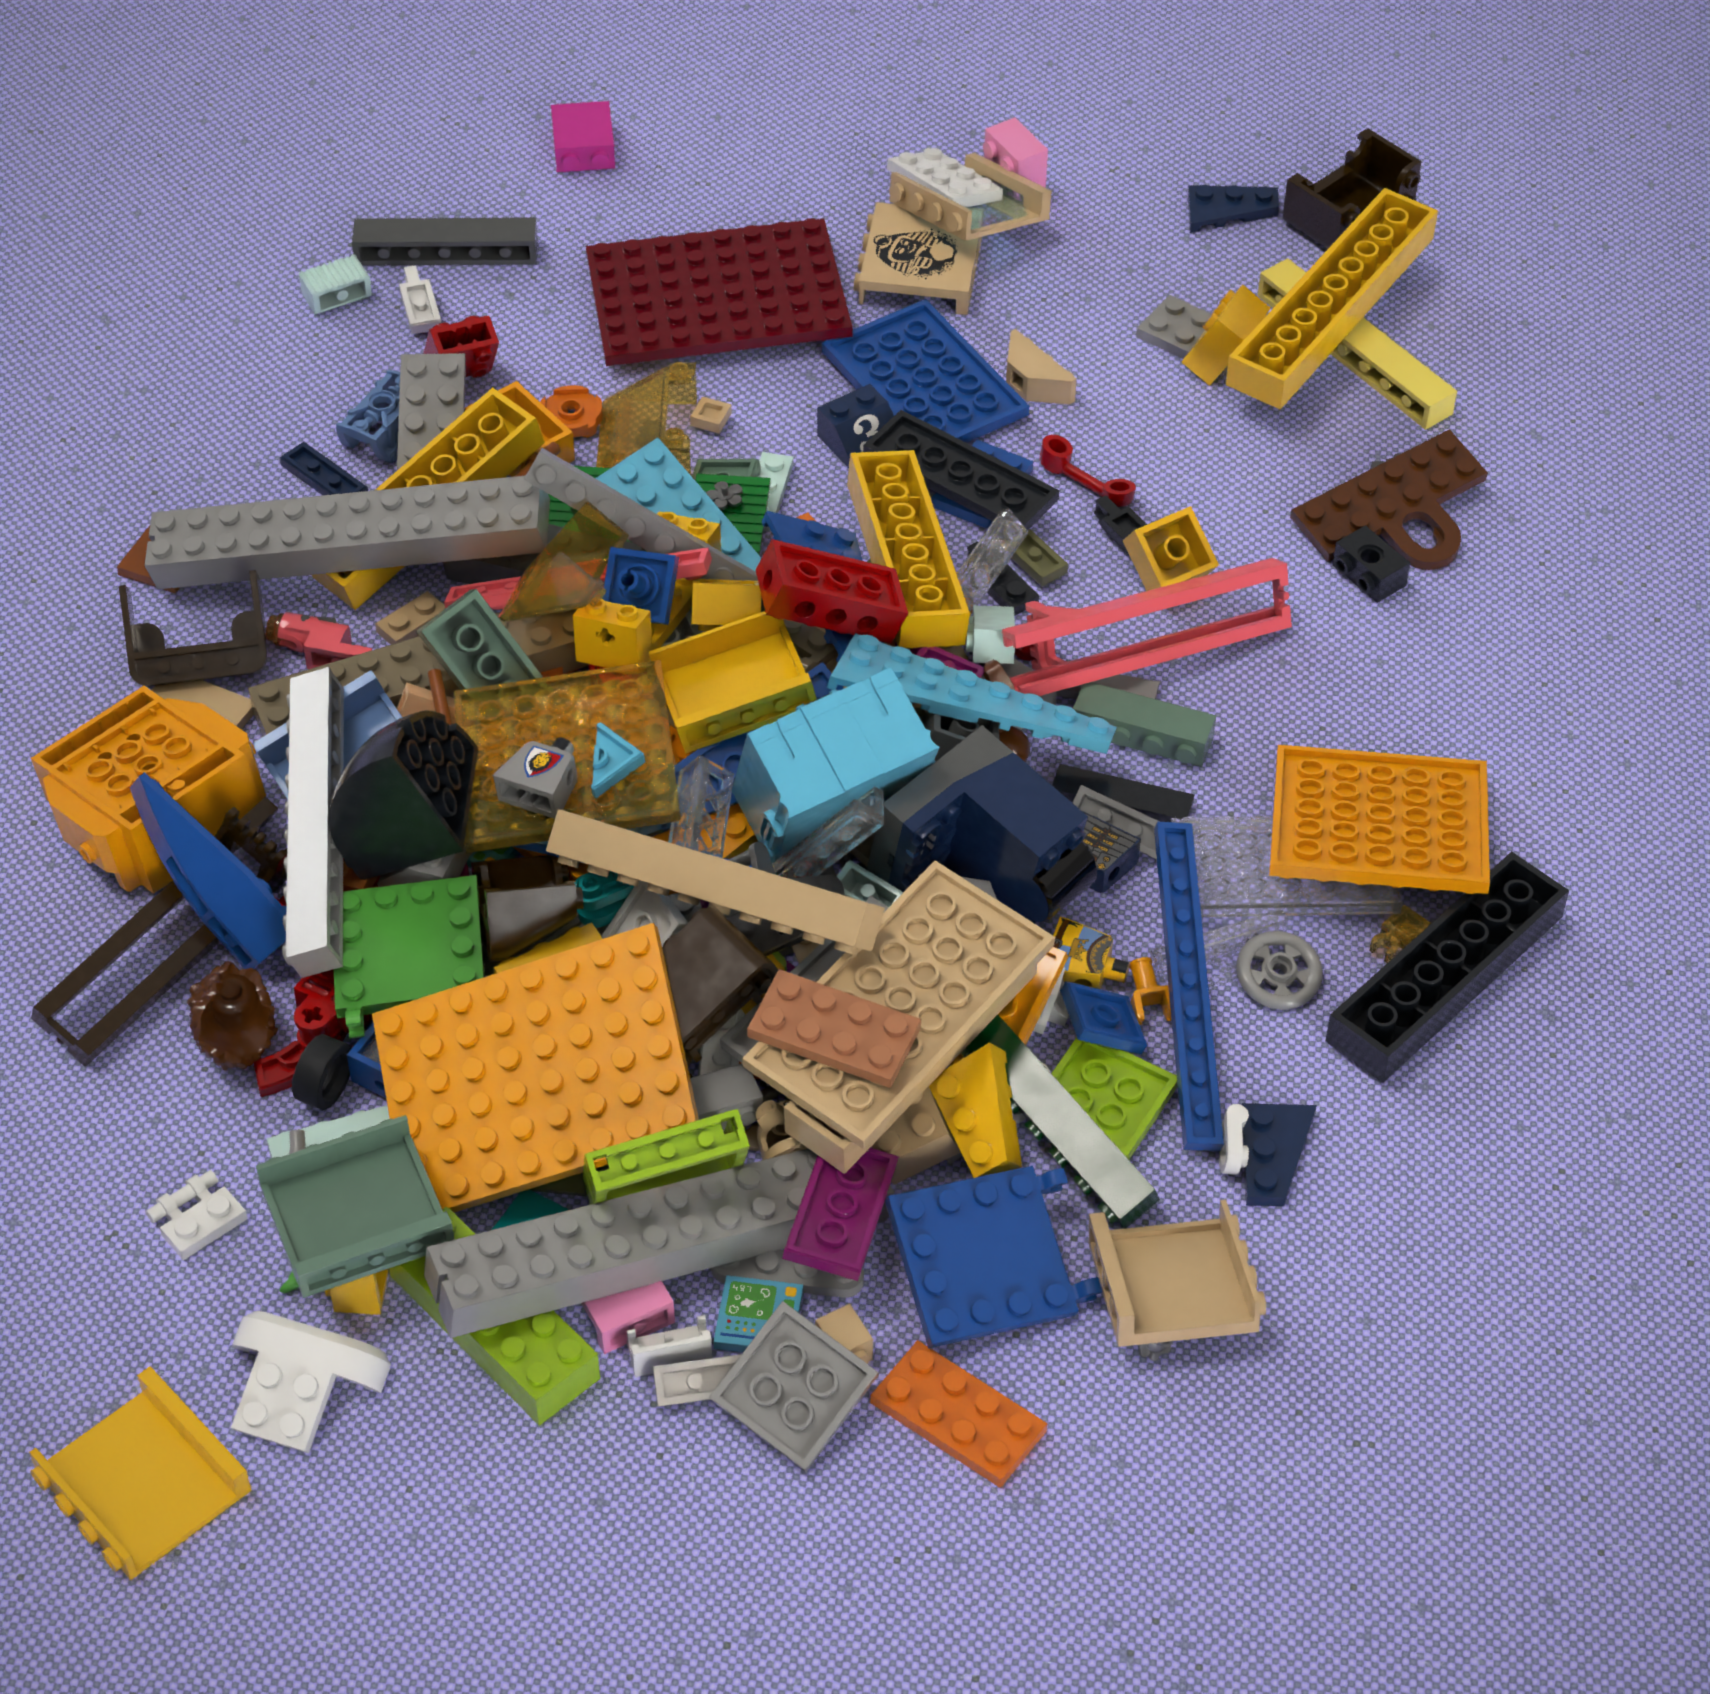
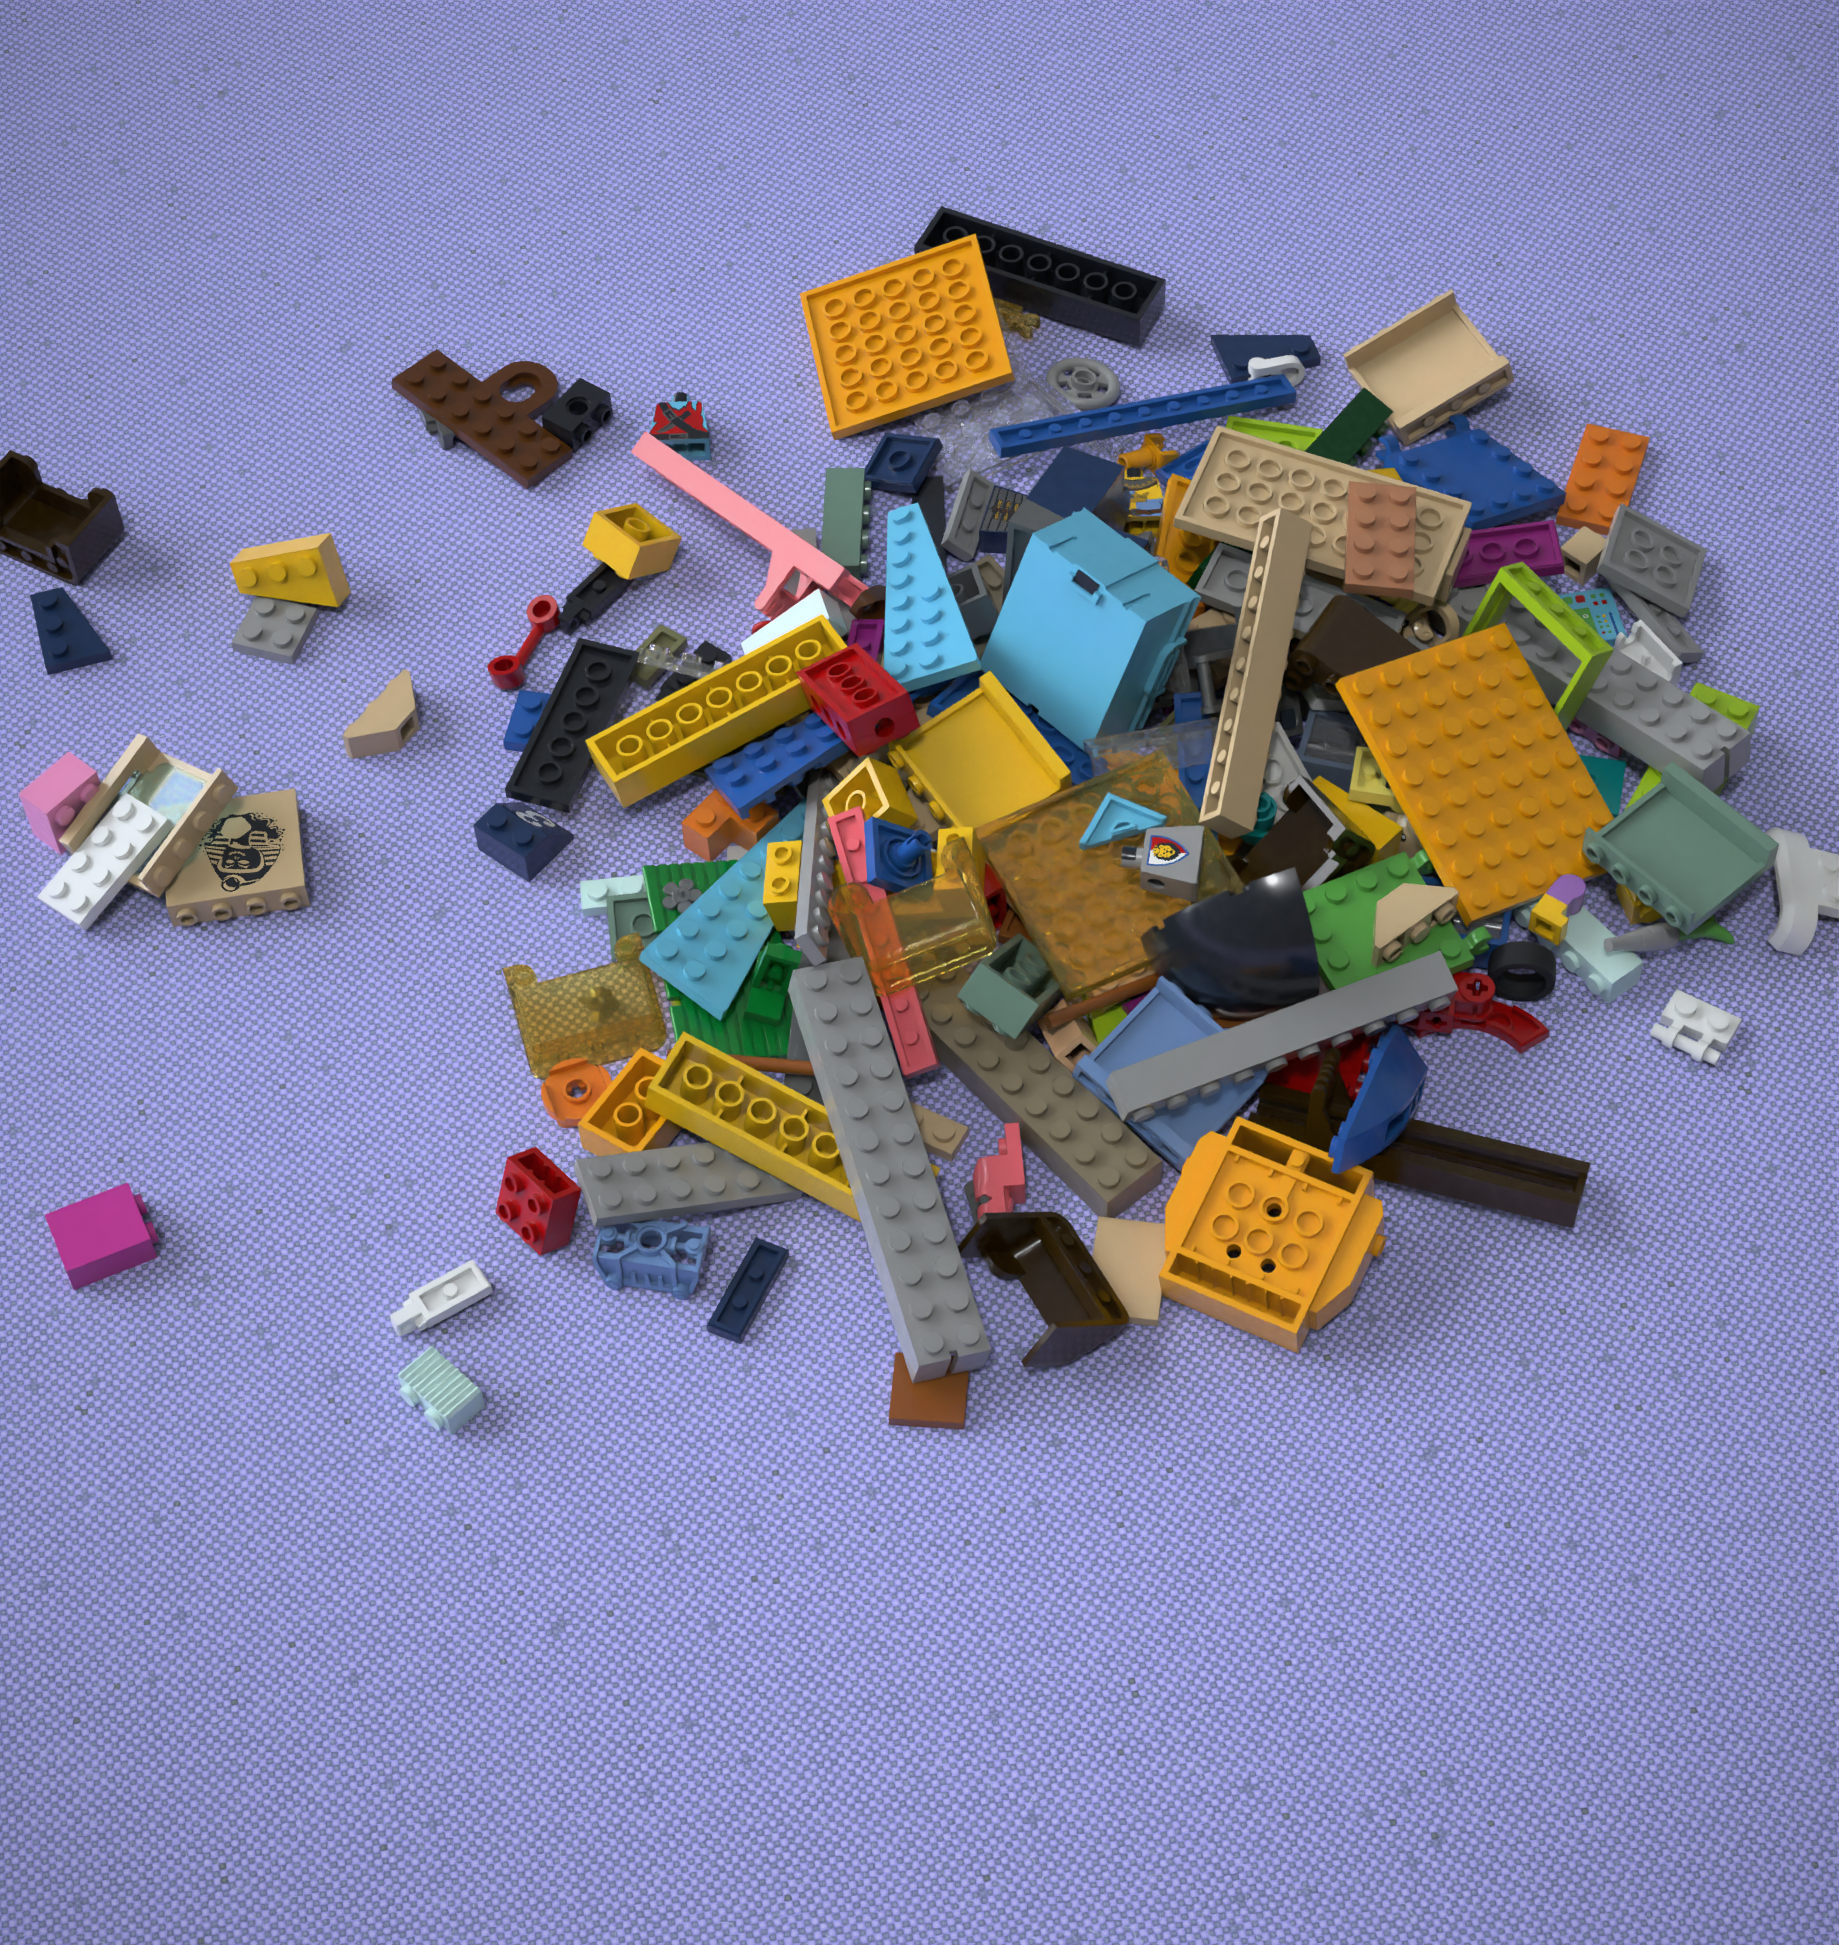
camera: 105 degrees left, 5 degrees up
(232, 1016) = (1498, 1066): reddish brown hair -> none
(361, 1101) = (1552, 912): none -> leg
(393, 950) = (1407, 918): none -> tan slope
(445, 241) = (332, 1309): dark grey brick -> none
(710, 415) = (544, 963): tan plate -> none
(717, 291) = (343, 1022): dark red plate -> none
(927, 372) = (417, 808): blue plate -> none
(1214, 787) = (902, 462): none -> dark blue plate
(1324, 633) = (682, 427): none -> torso
(1331, 298) = (241, 480): yellow brick -> none
(1375, 358) = (264, 486): light yellow brick -> none

